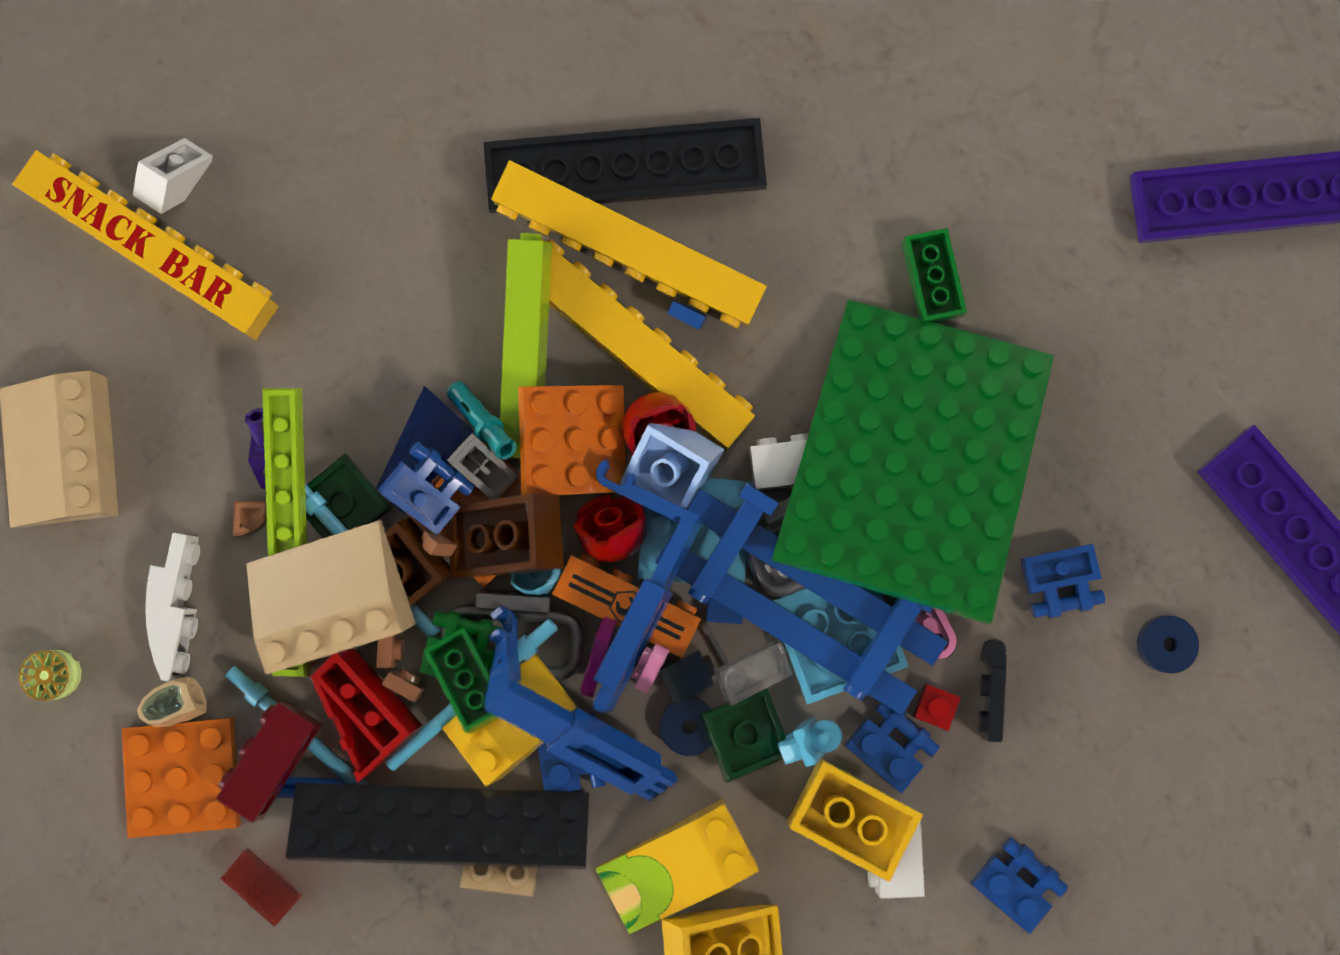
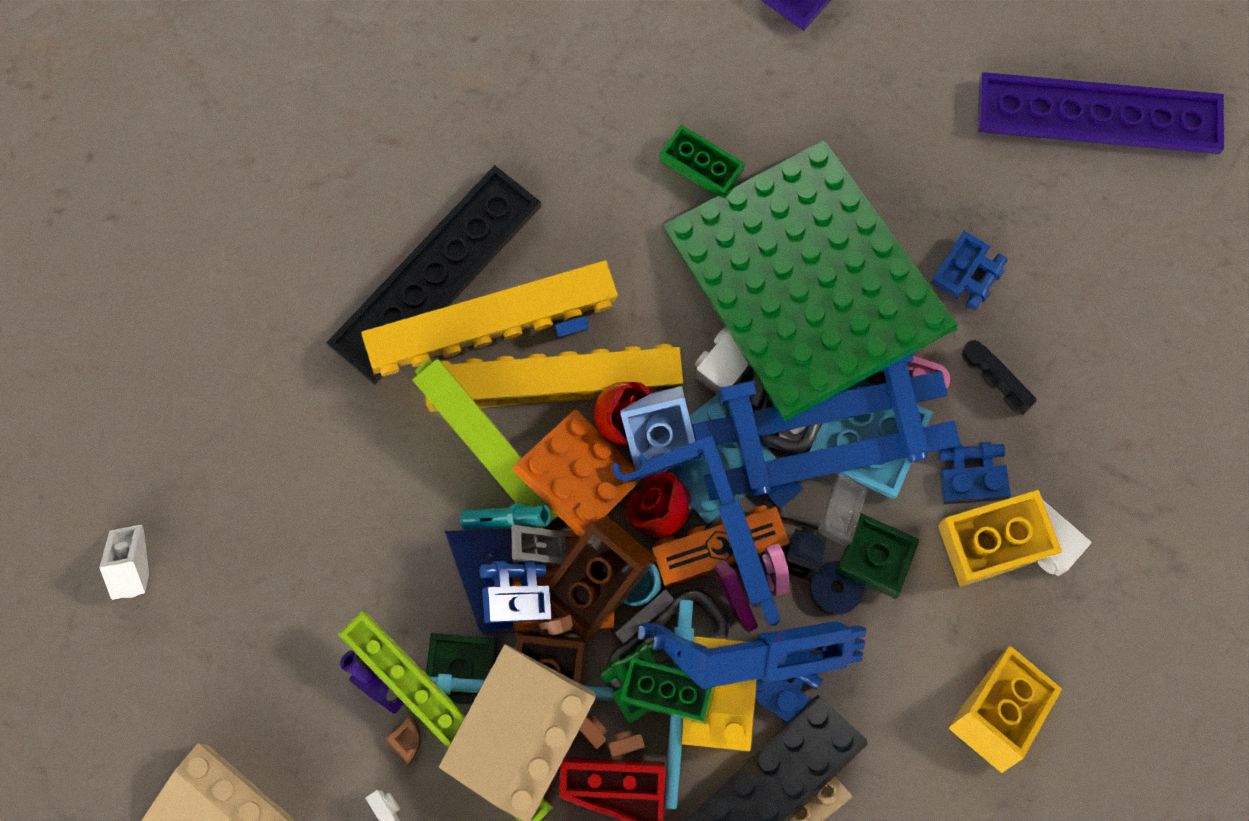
camera: 45 degrees left, 10 degrees down
(145, 244) = (151, 625): yellow brick -> none
(678, 867) = (923, 684): yellow slope -> none
(810, 741) = (923, 516): medium azure hips -> none
(936, 707) = (975, 422): red plate -> none
(1011, 893) = (1138, 492): blue plate -> none
(1184, 644) = (1074, 237): dark blue piece -> none

